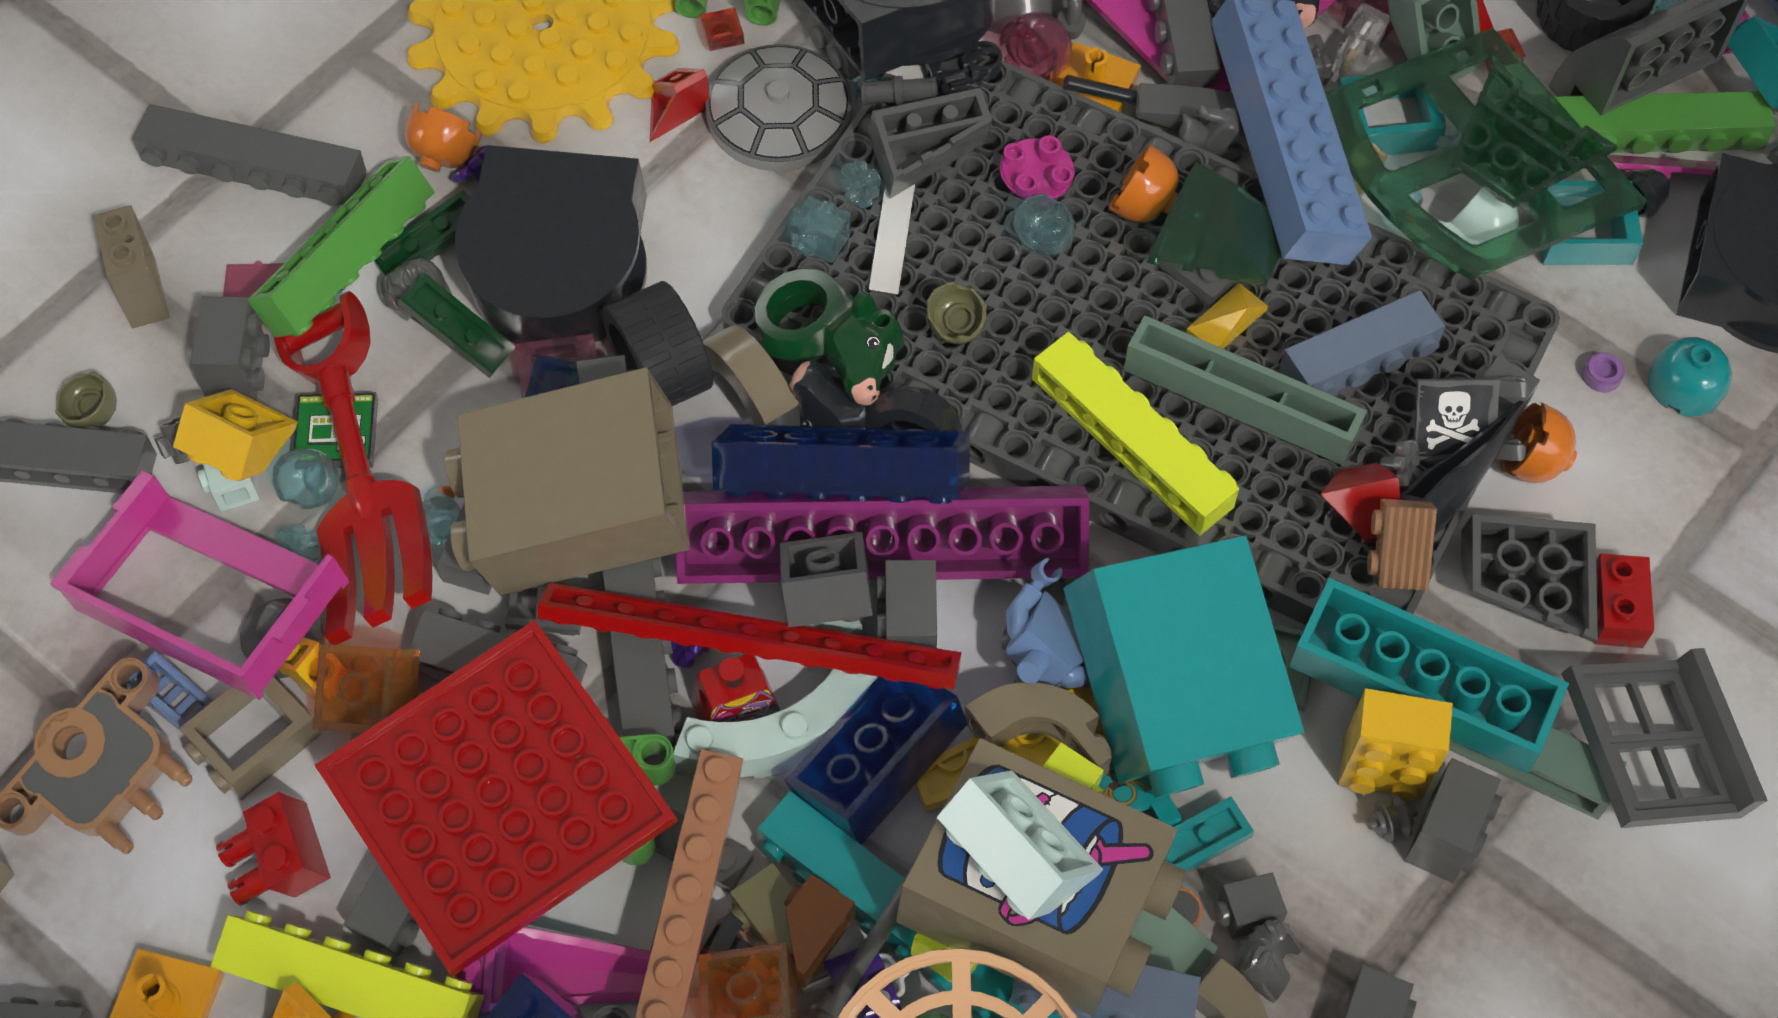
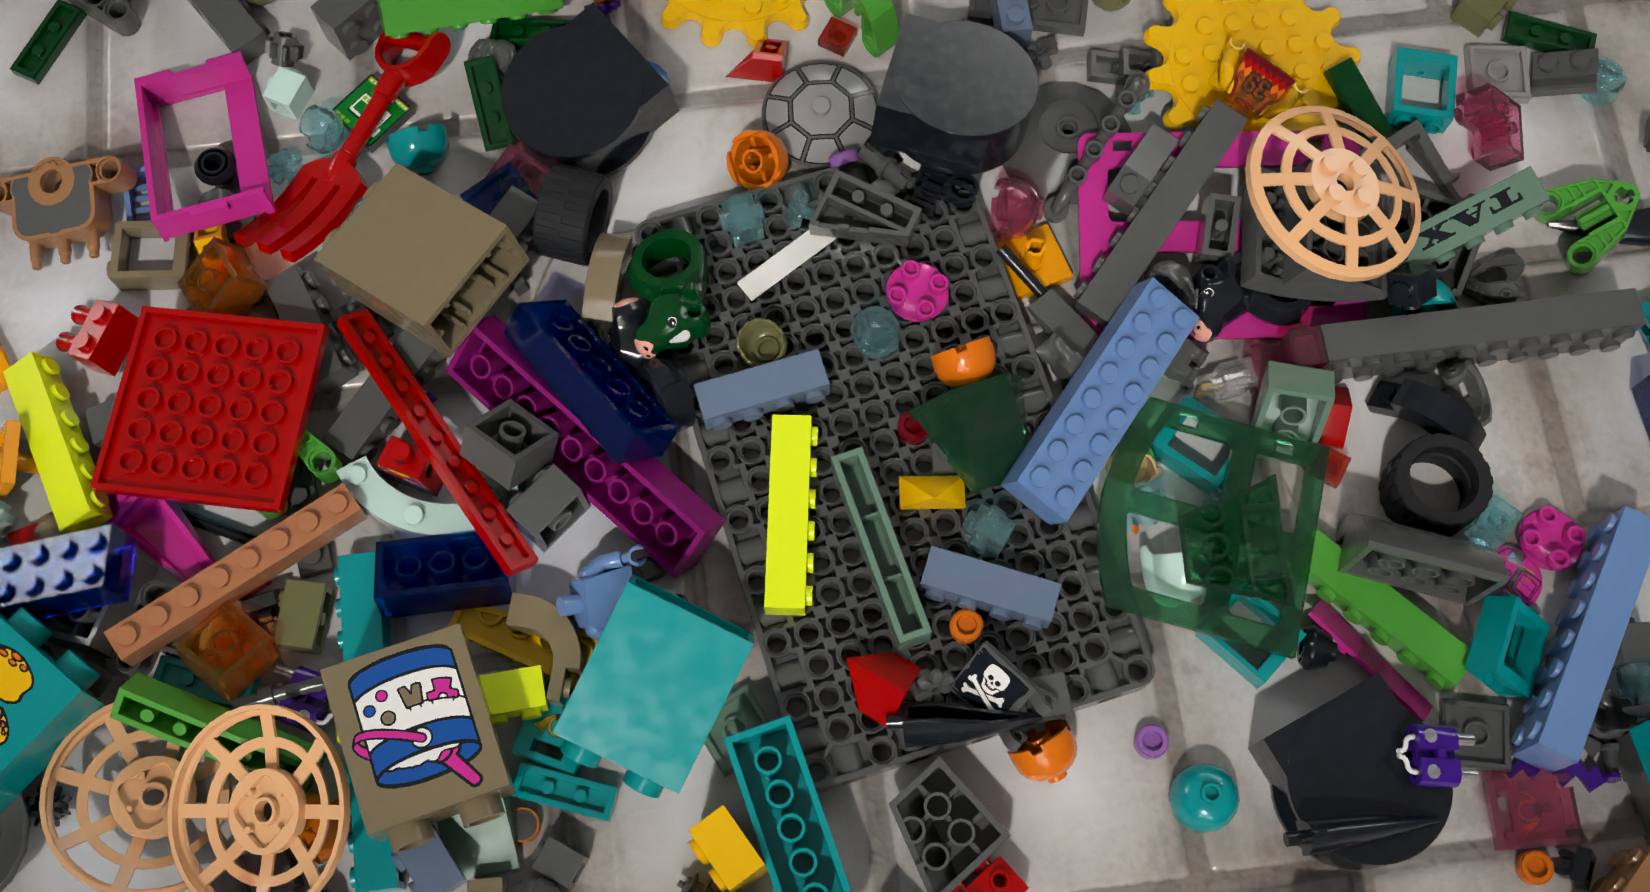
camera: 45 degrees right, 10 degrees up
(228, 597) = (215, 166): none -> black cone
(232, 433) = (299, 68): yellow slope -> none
(429, 418) = (419, 148): none -> teal cylinder
(615, 913) = (218, 527): none -> black bar
(767, 194) = (757, 159): none -> orange cylinder
(815, 924) = (299, 642): reddish brown slope -> none
(846, 117) = (843, 158): none -> medium lavender tile
(997, 350) = (762, 390): none -> sand blue brick
(1018, 843) = (401, 707): light aqua slope -> none
(1154, 280) = (910, 430): none -> dark red tile
(1311, 305) = (988, 530): none -> clear light blue brick
(1375, 397) = (966, 626): none -> orange tile
(1403, 544) = (865, 736): medium nougat brick -> none

